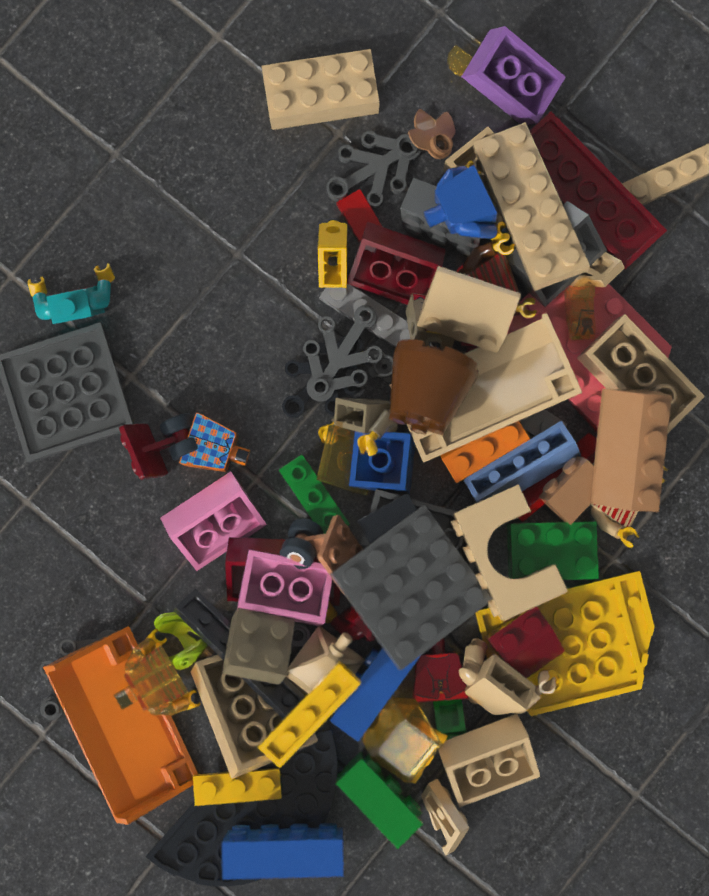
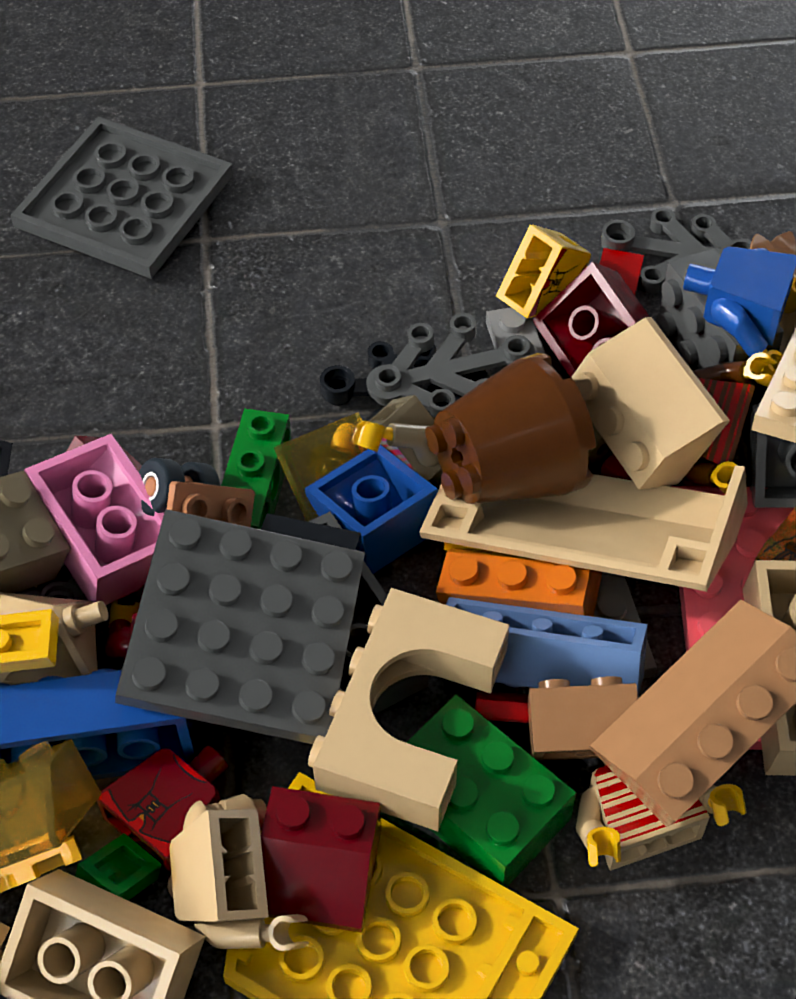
camera: 45 degrees right, 30 degrees down
(74, 303) = (230, 128): teal torso -> none
(144, 450) = (135, 292): dark red plate -> none
(209, 518) = (140, 409): bright pink slope -> none
(215, 446) = (203, 347): torso -> none
(321, 89) = (693, 145): tan brick -> none

